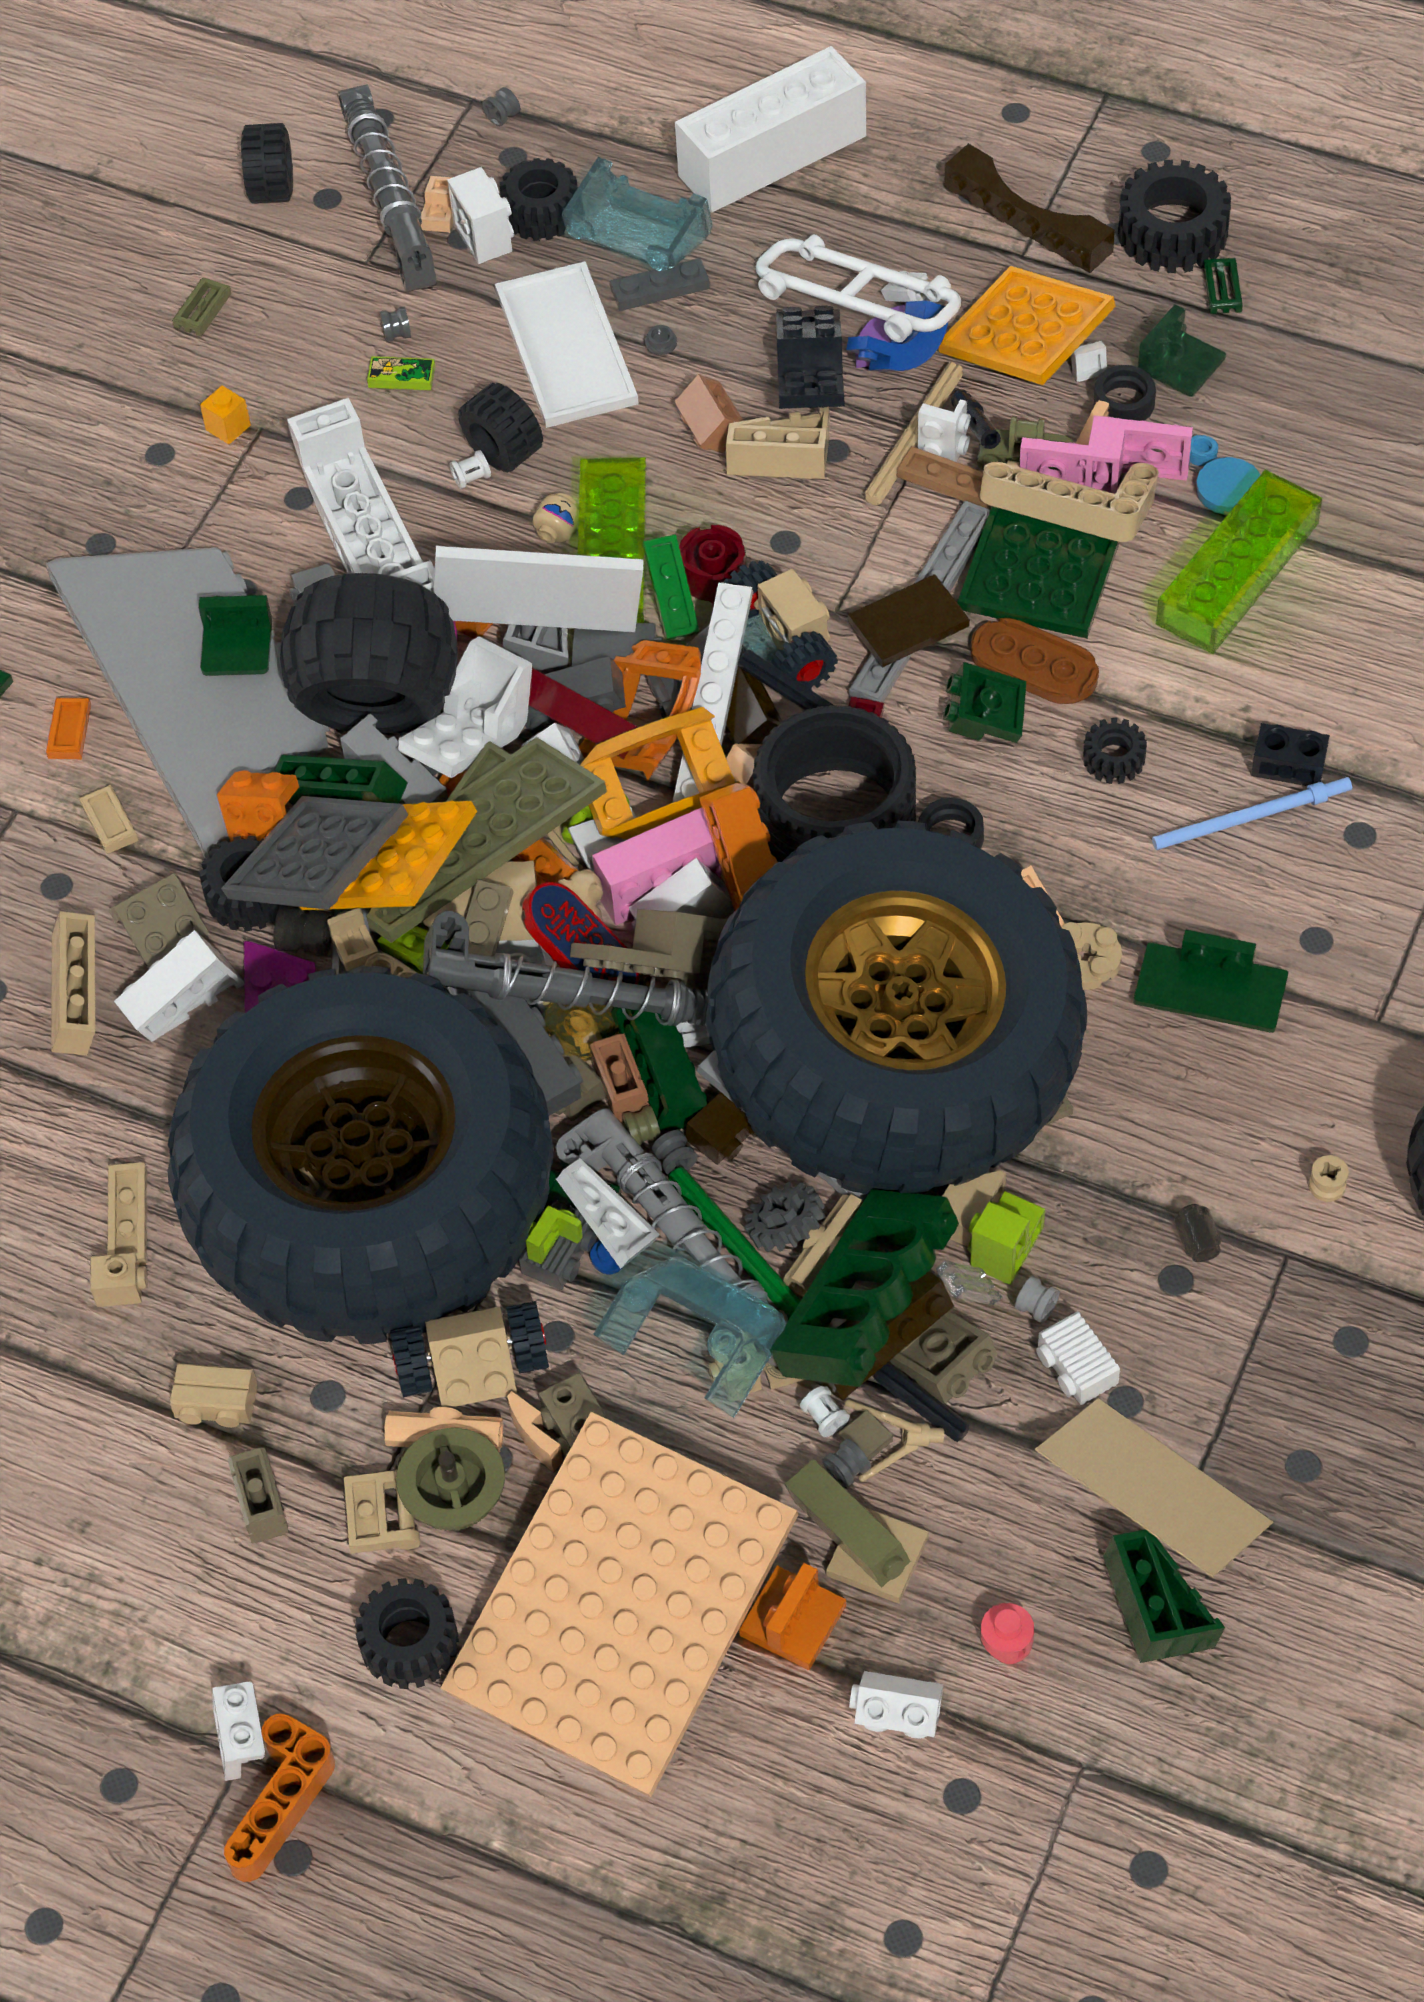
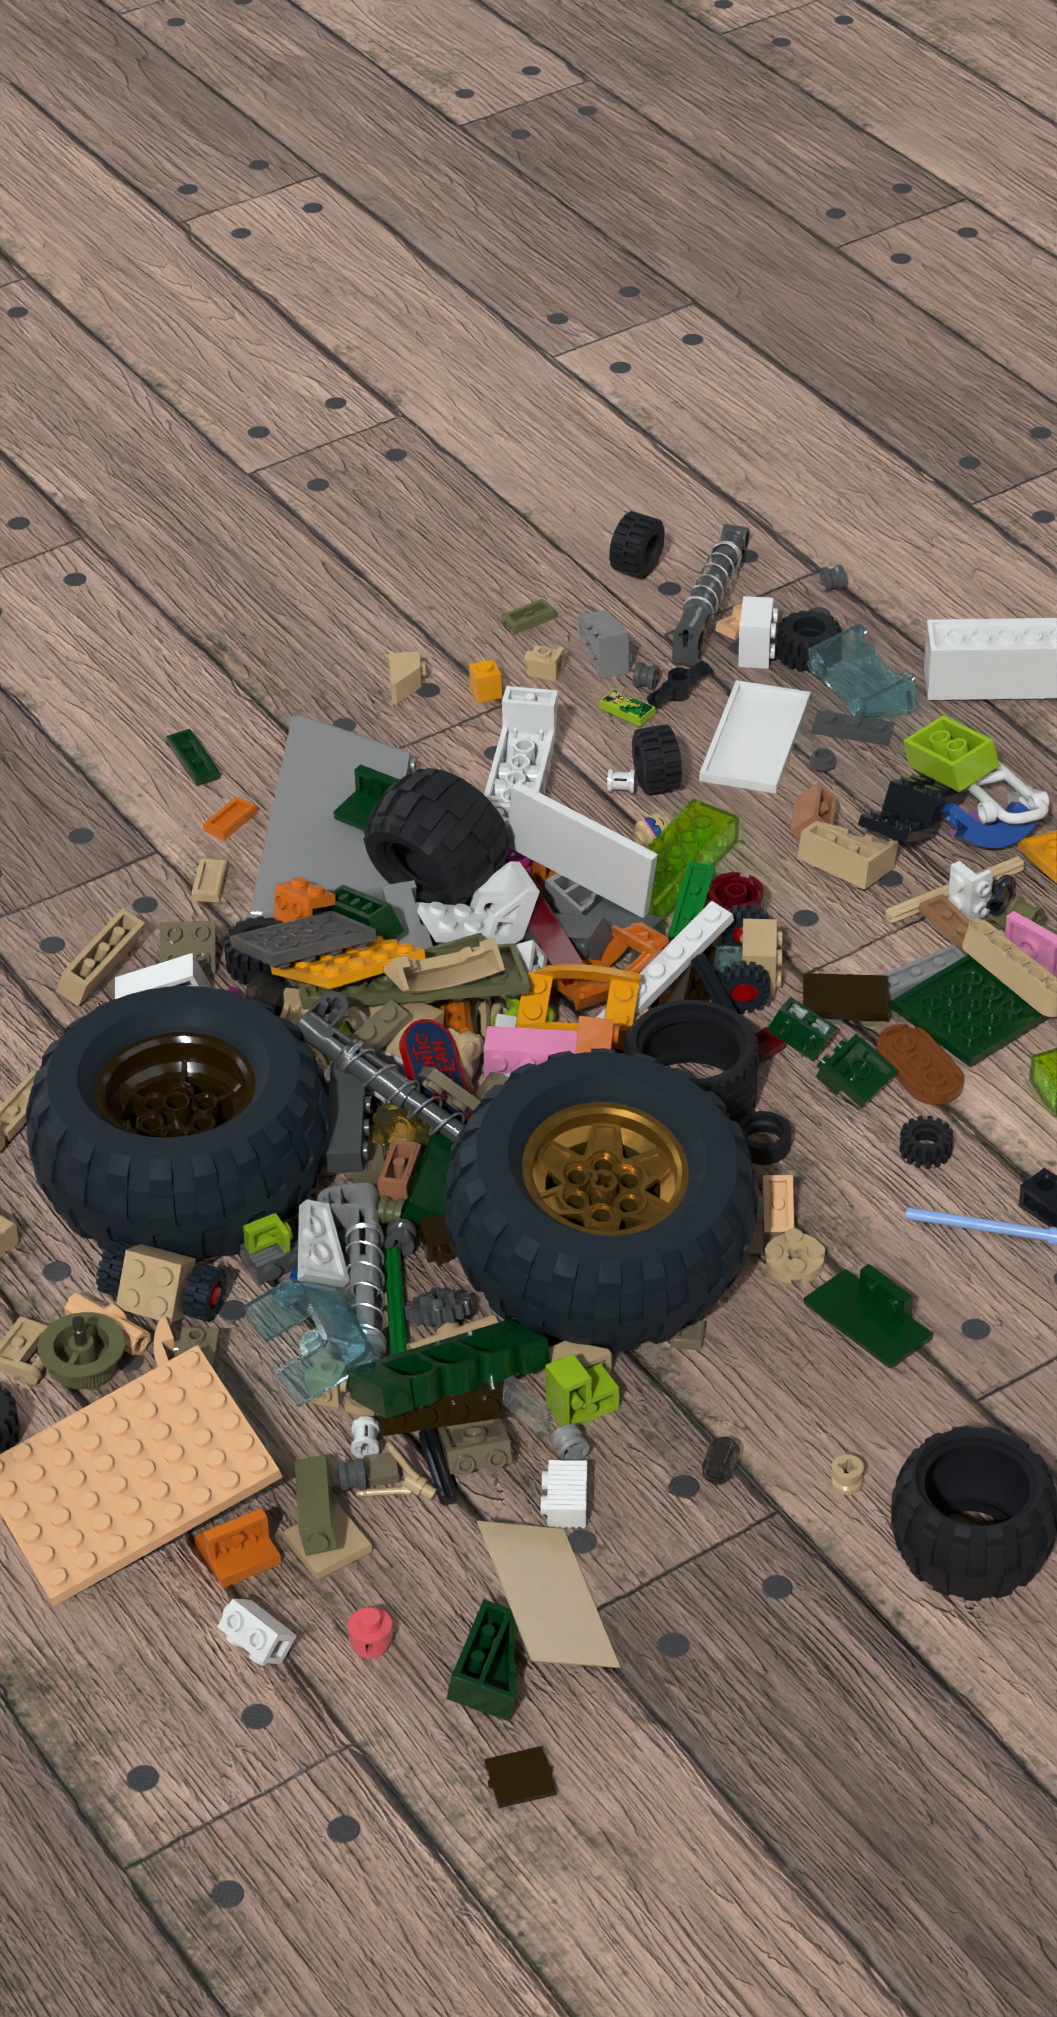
camera: 30 degrees right, 15 degrees down
(125, 448) = (405, 674): none -> tan slope
(270, 359) = (545, 662): none -> tan brick
(320, 303) = (605, 643): none -> light grey wedge
(439, 318) = (679, 684): none -> black pin
(516, 812) = (446, 970): none -> tan windscreen
(812, 274) = (951, 753): none -> lime brick
(896, 681) = (801, 1028): none -> dark green bracket
(1274, 1704) = (520, 1777): none -> dark brown piece

